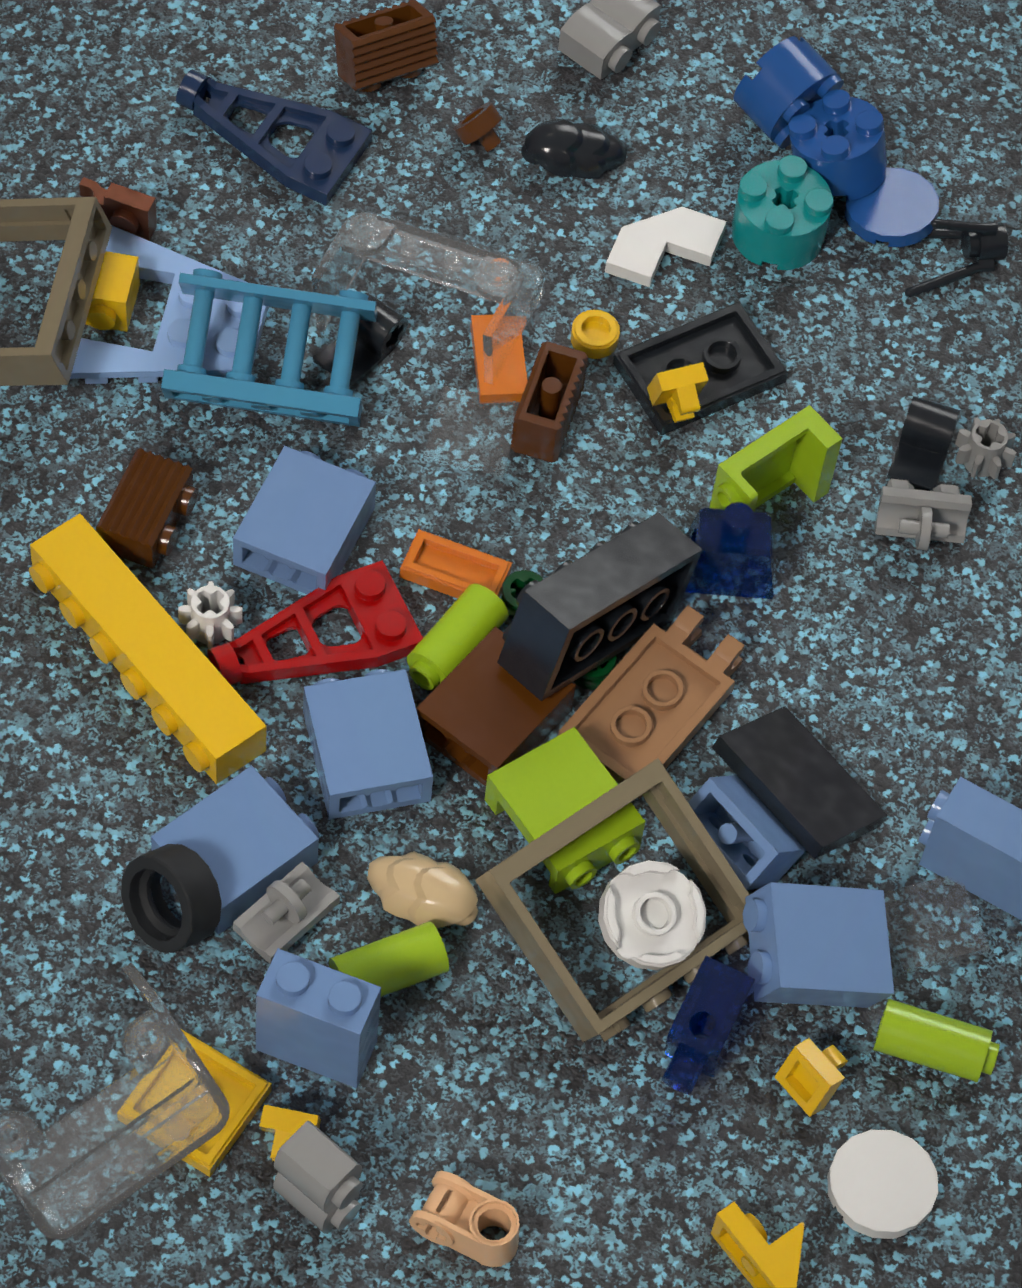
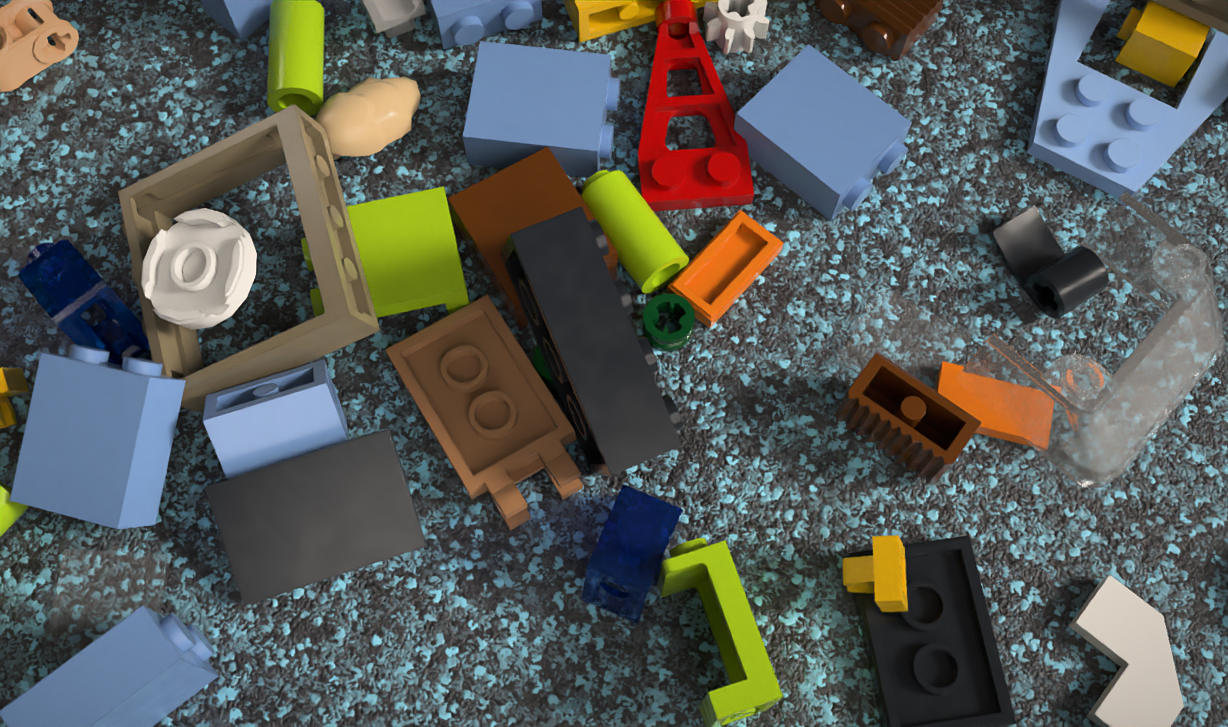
camera: 115 degrees right, 10 degrees up
(239, 387) = (1007, 116): dark azure fence -> none
(595, 333) = (1007, 529): yellow tile -> none

